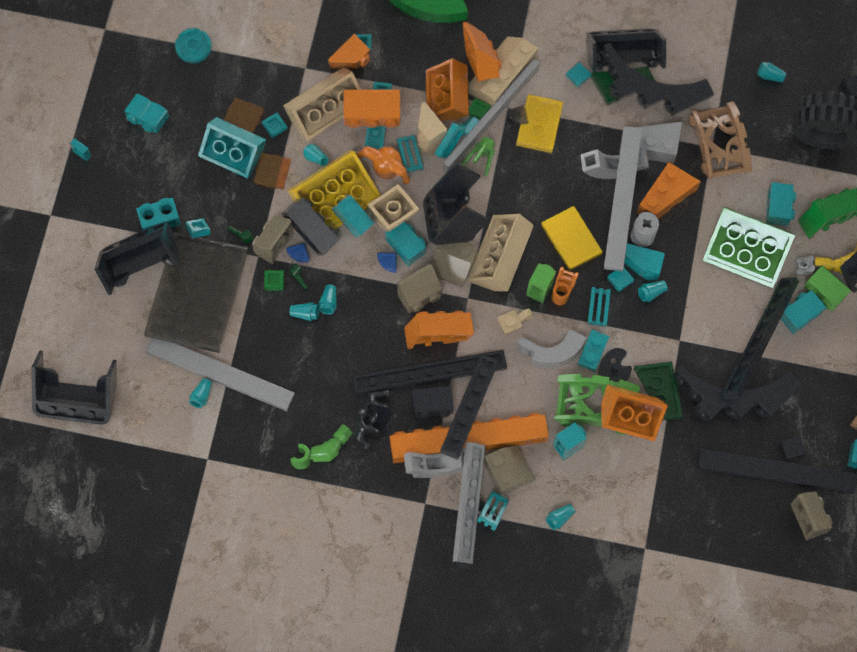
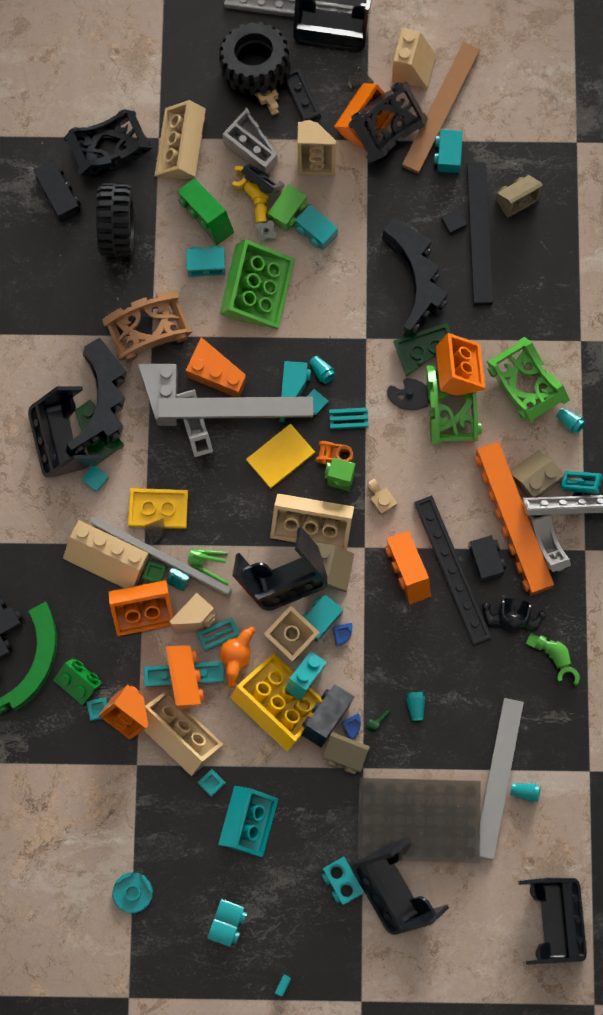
camera: 95 degrees left, 5 degrees up
(197, 228) = (348, 836): teal tile -> none
(244, 115) = (207, 819): clear orange piece -> none
(246, 236) = (345, 784): dark green hand -> none
(272, 171) = (265, 773): clear orange piece -> none
(274, 280) = (387, 745): green tile -> none
(315, 155) = (240, 731): teal cone -> none
(328, 302) = (398, 684): teal cone -> none
(391, 30) = (77, 681): none -> green bracket
(419, 289) = (371, 593): dark tan slope -> none
(450, 140) = (201, 591): teal tile -> none
(469, 407) = (486, 520): black tile -> none
(481, 53) = (98, 576): orange slope -> none
(556, 356) = (407, 443): light grey arch -> none
(570, 441) = (499, 420): teal brick -> none
(589, 501) = (554, 393): none -> bright green fence
(593, 350) = (395, 417): teal plate -> none
(644, 229) = (263, 382): light grey piece -> none
(760, 338) = (356, 259): black tile -> none
(771, 72) = (59, 289): teal cone -> none

